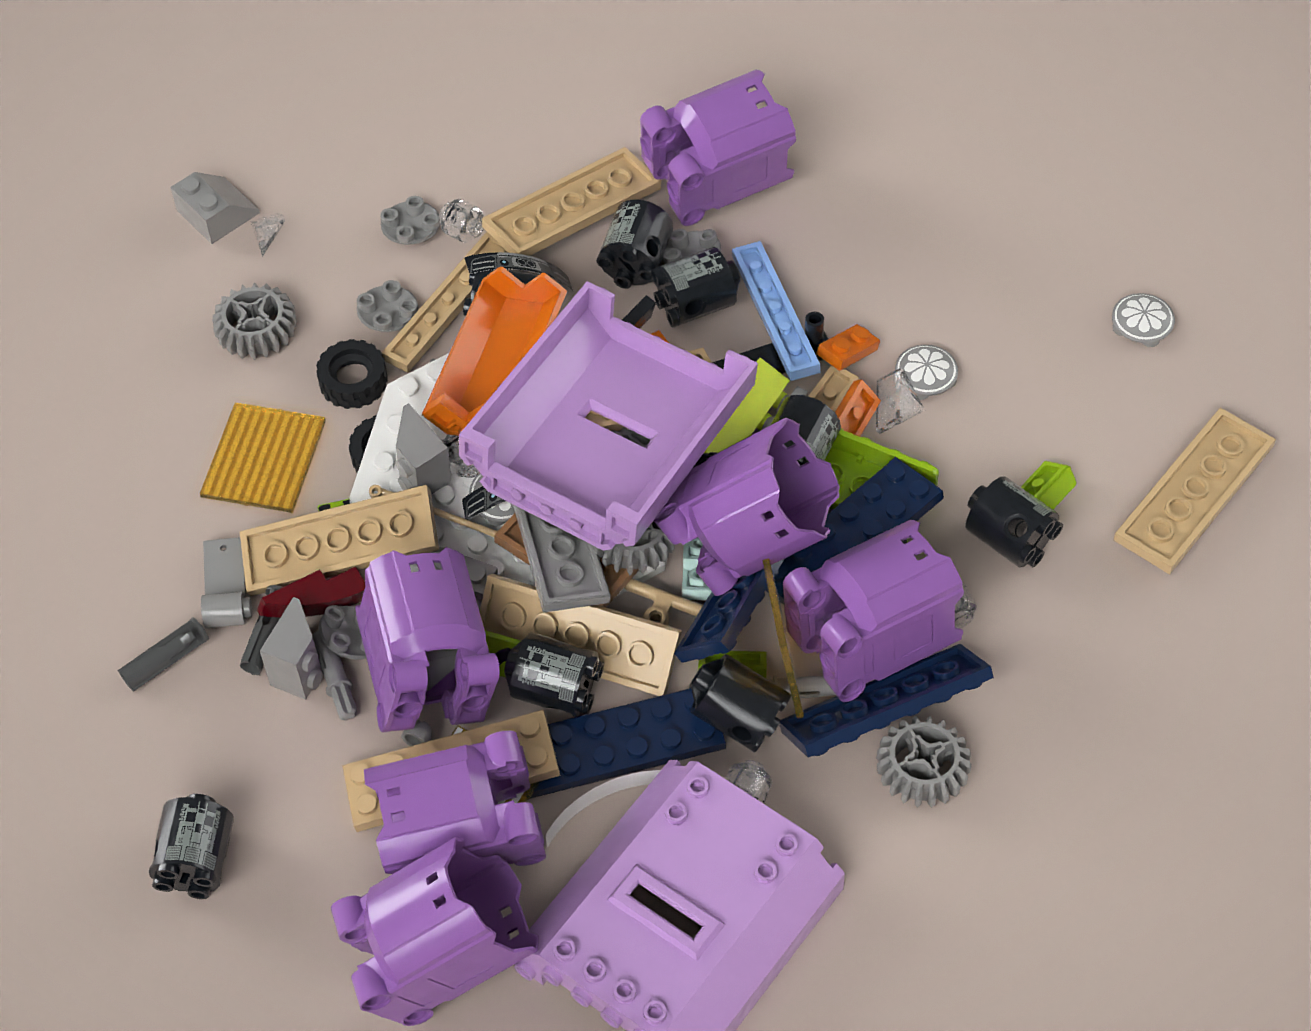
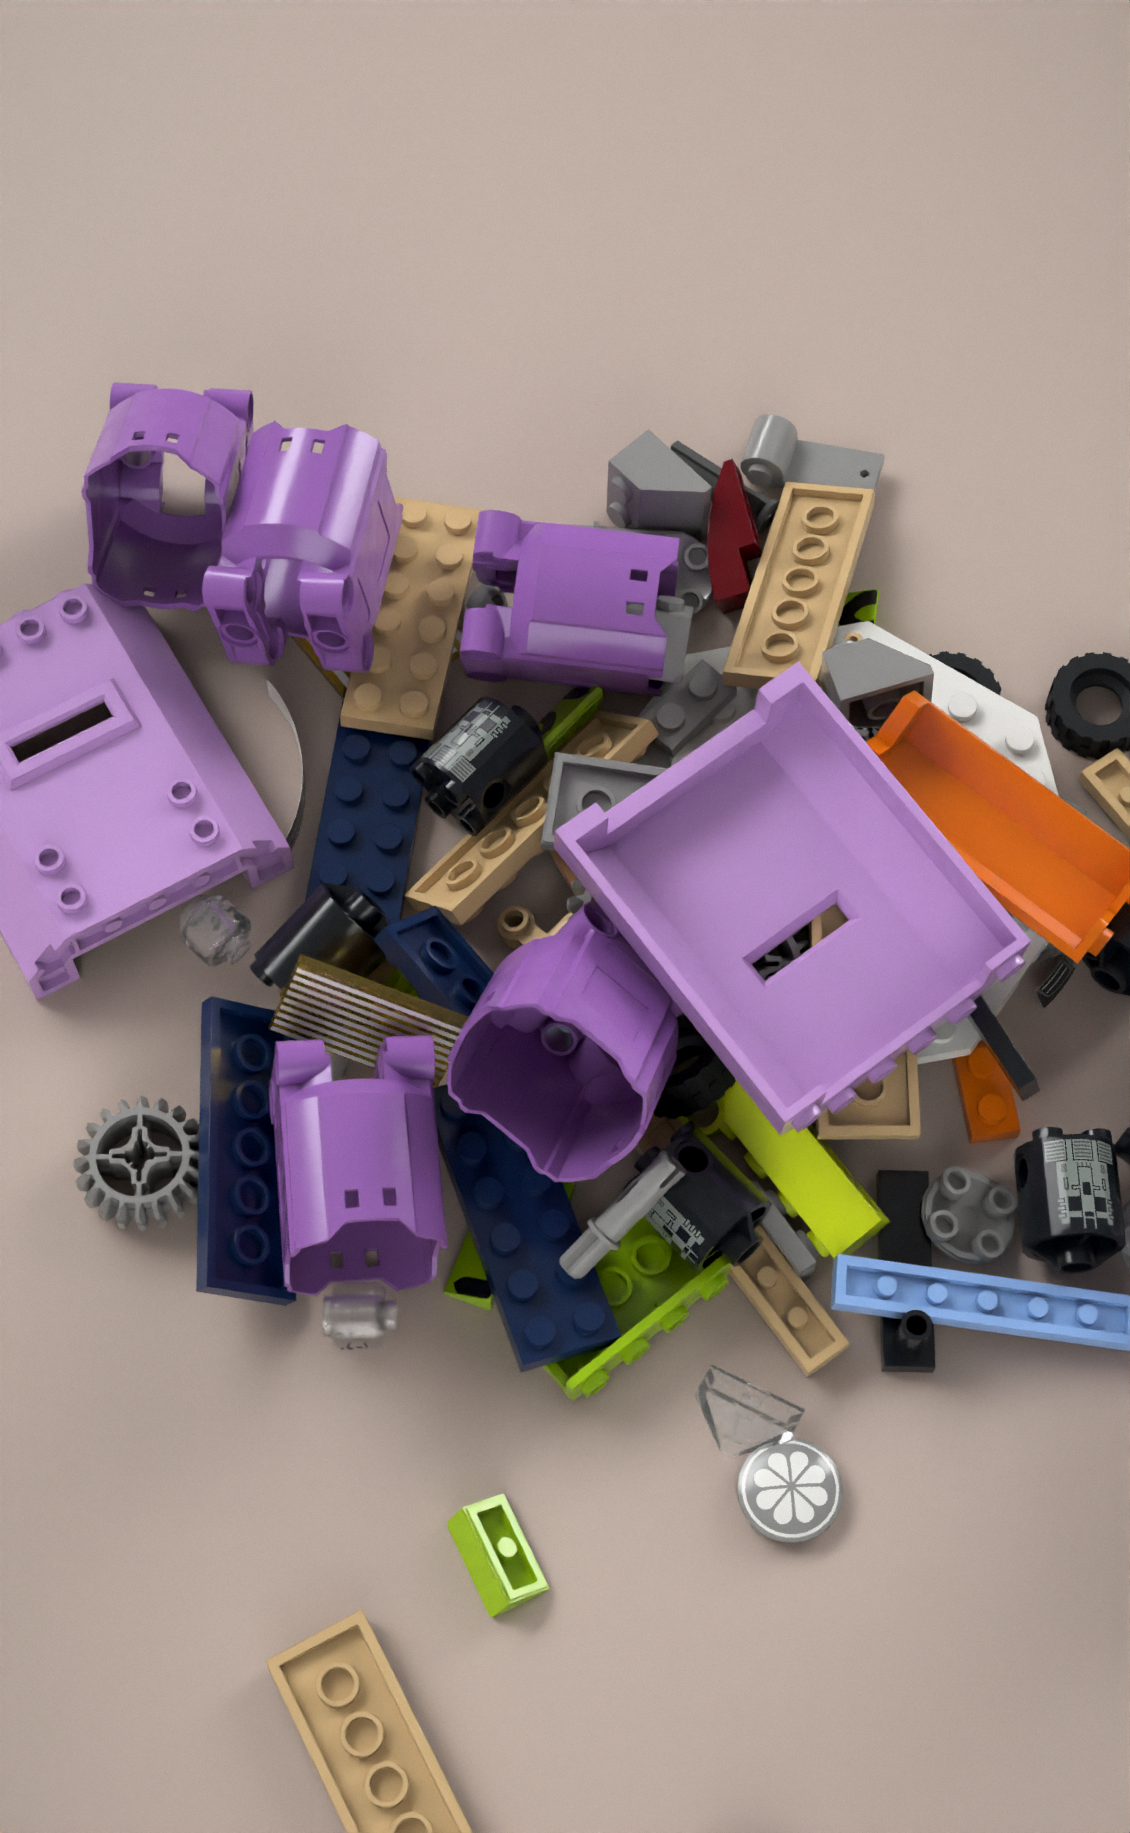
camera: 110 degrees right, 10 degrees up
(163, 654) = (734, 372): dark grey piece -> none
(191, 845) = (440, 318): black cylinder -> none
(263, 457) = (1004, 569): clear yellow piece -> none
(724, 335) = (969, 1216): none -> light grey dish
(841, 462) = (622, 1215): none -> light grey axle
(848, 347) = (874, 1385): orange plate -> none
(857, 407) = (746, 1336): orange plate -> none
(1003, 513) = (440, 1454): black cylinder -> none

